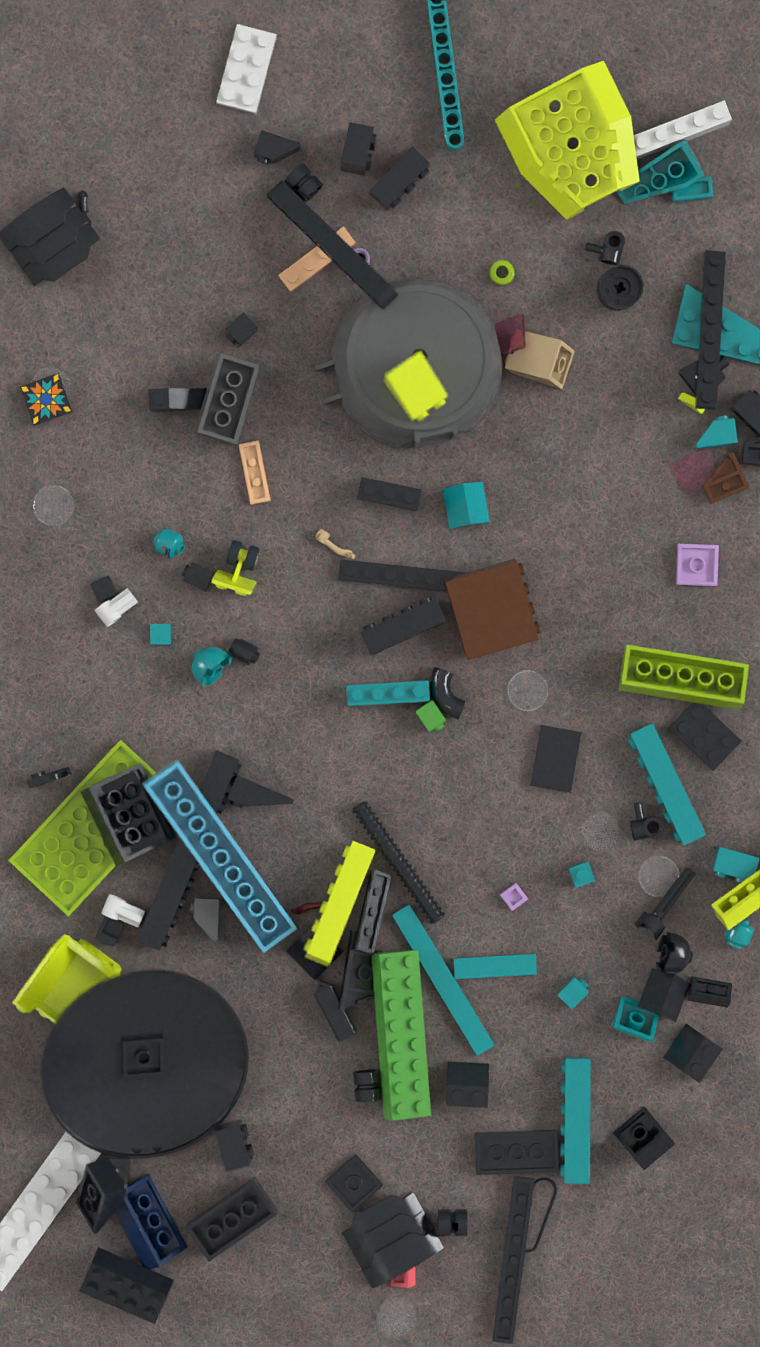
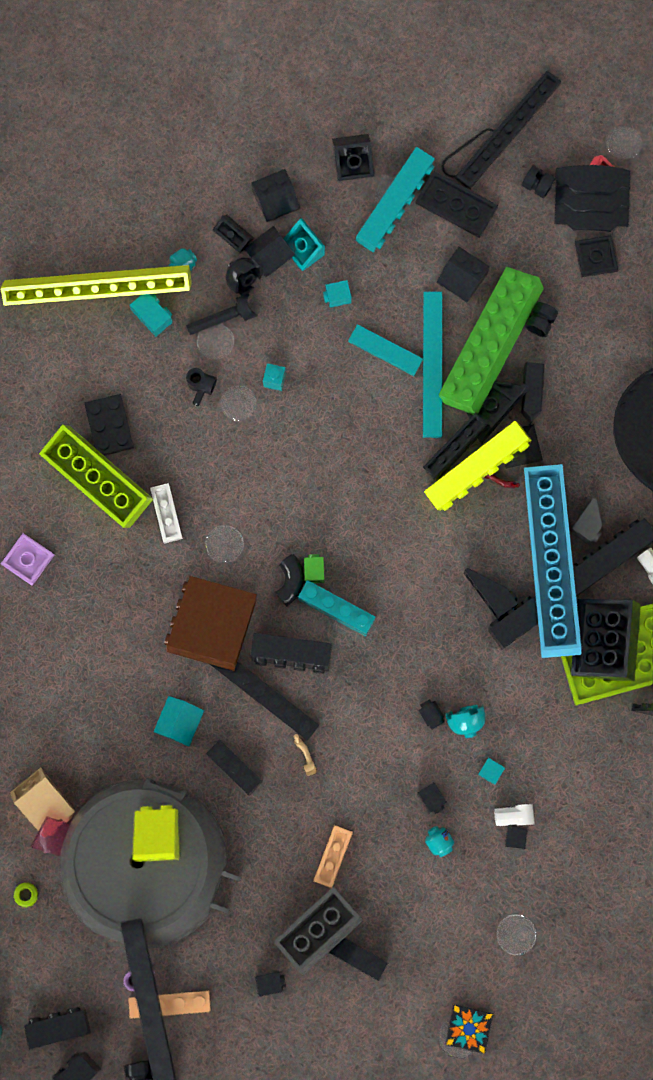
camera: 145 degrees left, 10 degrees down
(234, 581) = (405, 774): neon yellow plate -> none
(398, 862) = (411, 473): black piece -> none
(514, 896) = (337, 393): lavender tile -> none
(555, 758) = (236, 477): black tile -> none
(598, 685) = (166, 513): none -> white plate
(667, 784) = (163, 405): teal brick -> none

